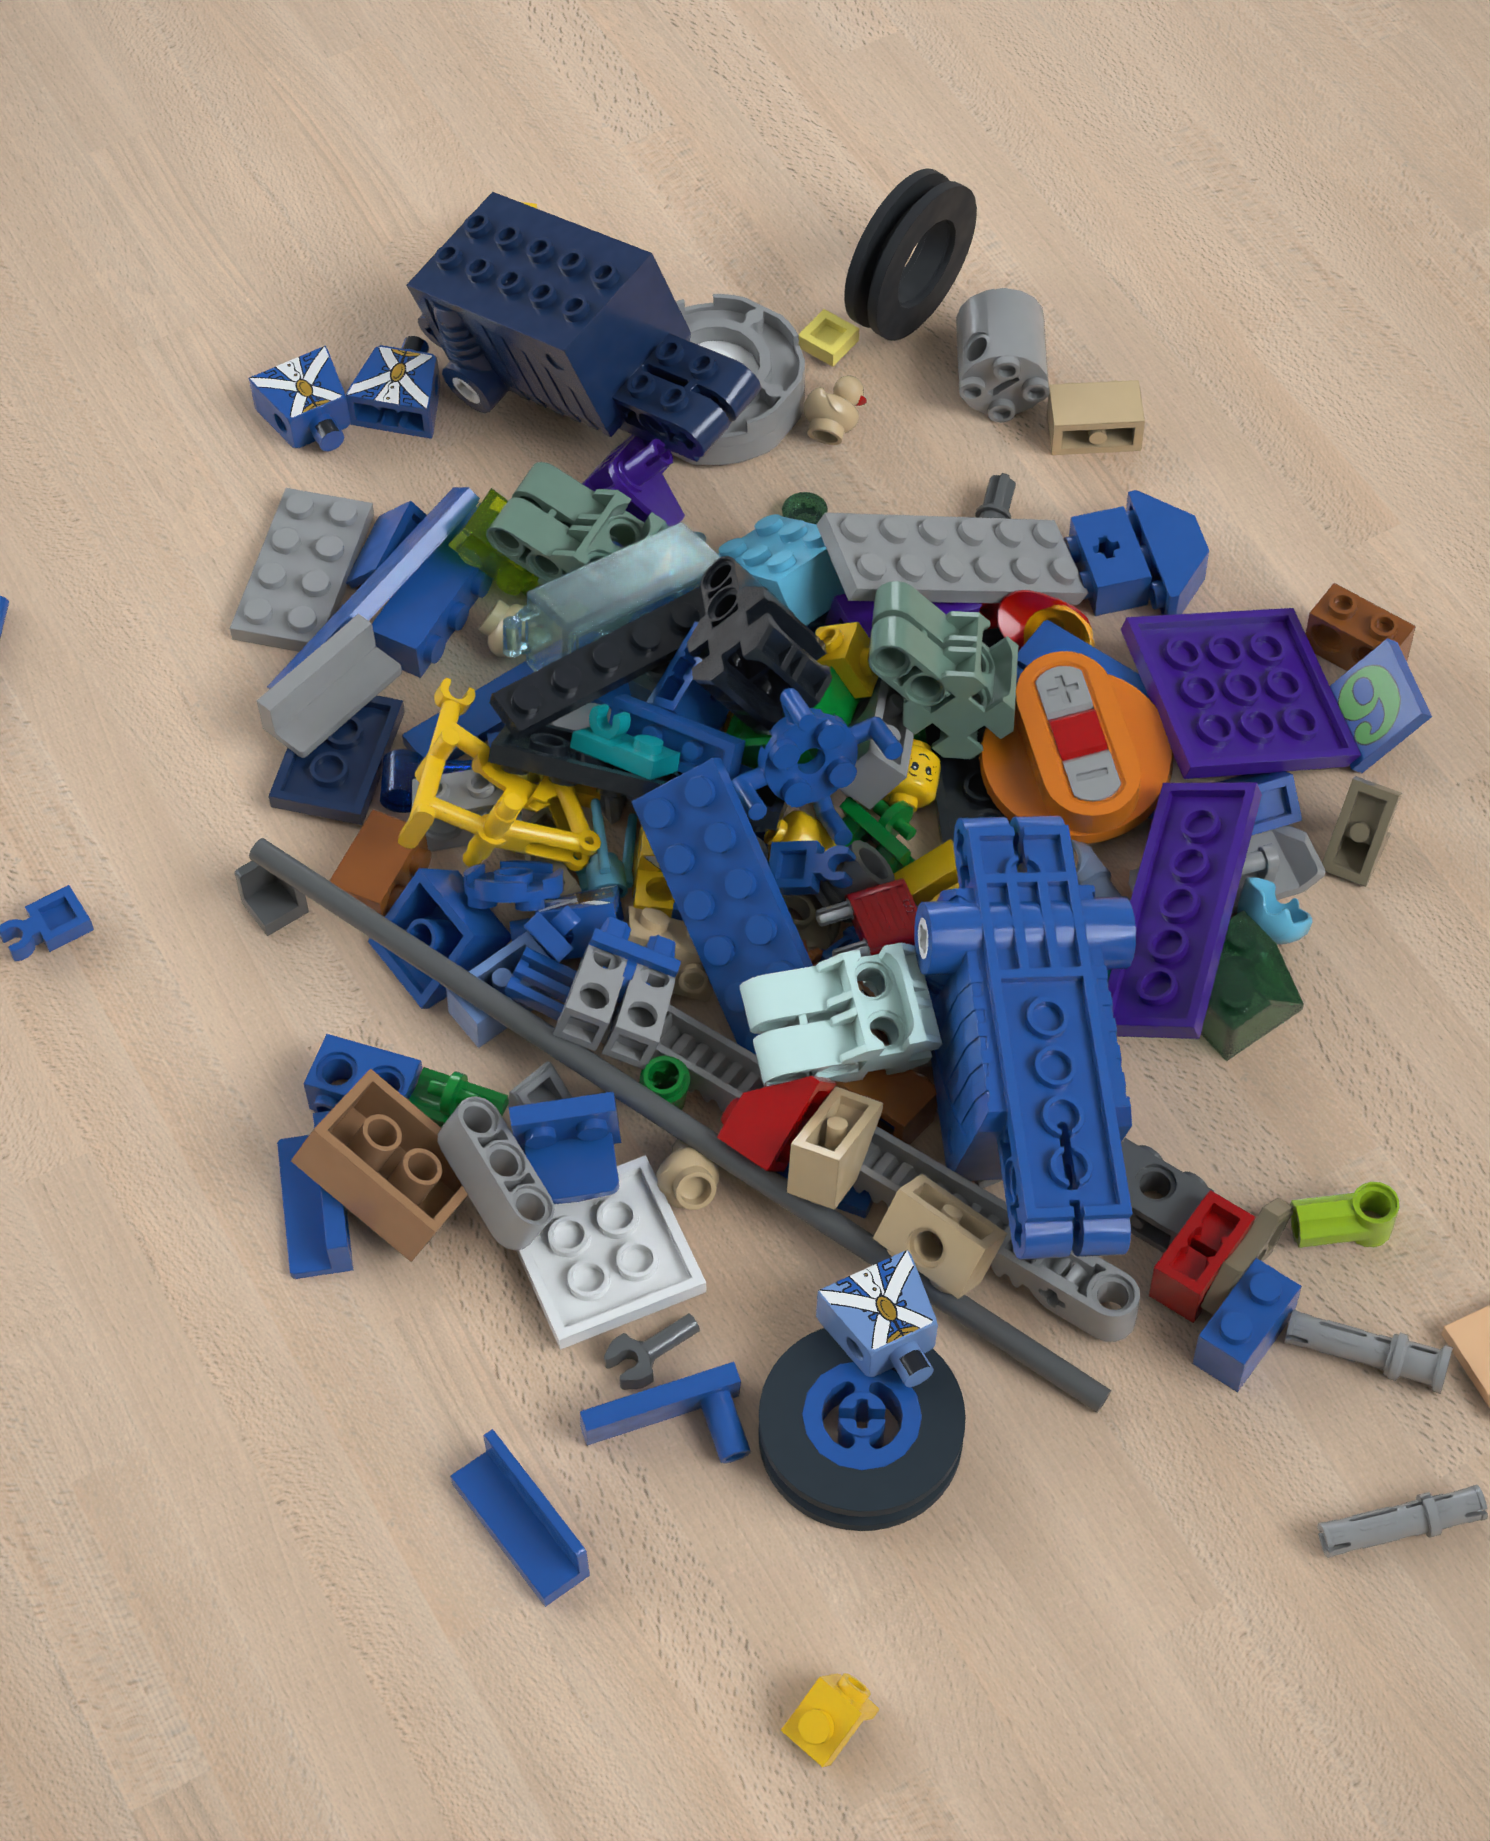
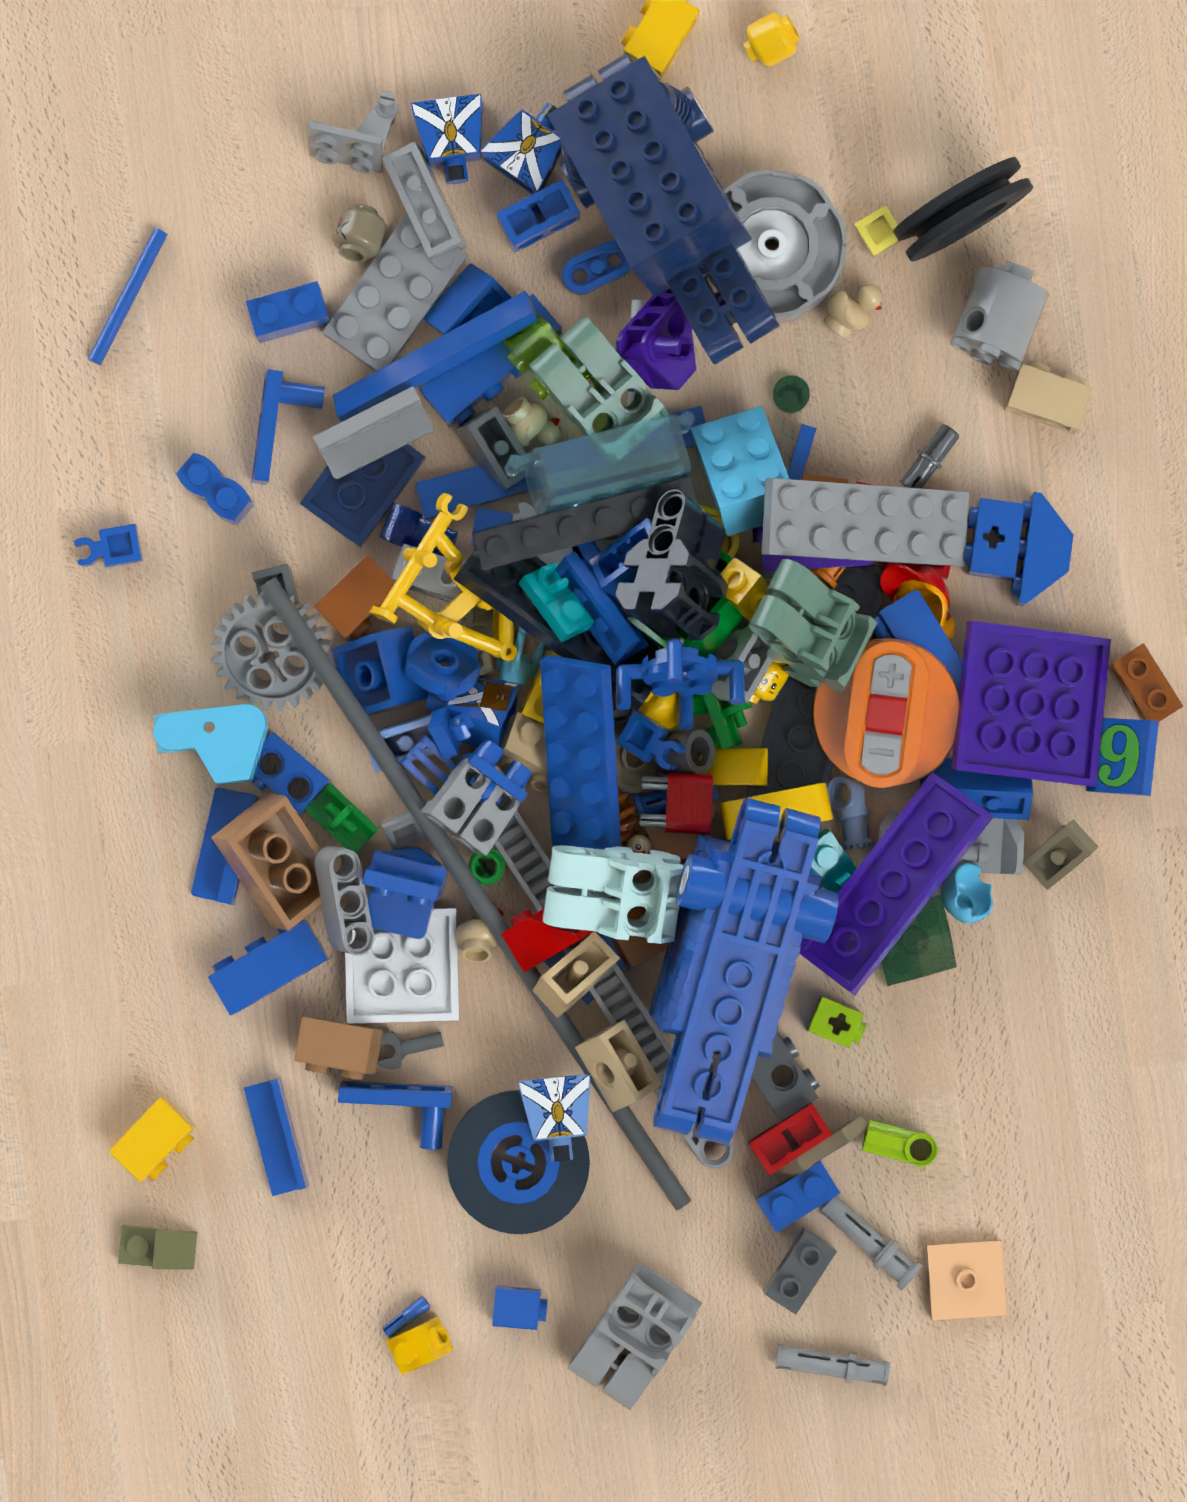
camera: 25 degrees right, 30 degrees up
(157, 816) = (222, 494): none -> blue brick
(180, 617) = (288, 312): none -> blue brick
(191, 434) = (357, 148): none -> light grey plate
(193, 703) = (276, 392): none -> blue piece
(237, 521) = (359, 233): none -> dark tan head
(259, 982) = (241, 661): none -> light grey gear
(262, 1048) = (228, 751): none -> medium azure piece
(300, 460) = (423, 200): none -> light grey panel
(349, 1586) = (153, 1140): none -> yellow brick
(408, 1733) = (157, 1247): none -> olive slope
(426, 1314) = (267, 966): none -> blue brick
(438, 434) = (538, 216): none -> blue brick
(473, 656) = (491, 444): none -> dark grey slope
(514, 466) = (596, 267): none -> blue plate
(558, 1369) = (338, 1046): none -> medium nougat brick
(628, 213) = (771, 39): none -> yellow head
(797, 1688) = (407, 1316): none -> blue pin
(945, 1609) = (518, 1307): none -> blue brick
(1149, 1583) = (647, 1320): none -> light grey connector
(1190, 1111) = (827, 1008): none -> lime brick
(1298, 1415) = (799, 1271): none -> dark grey brick

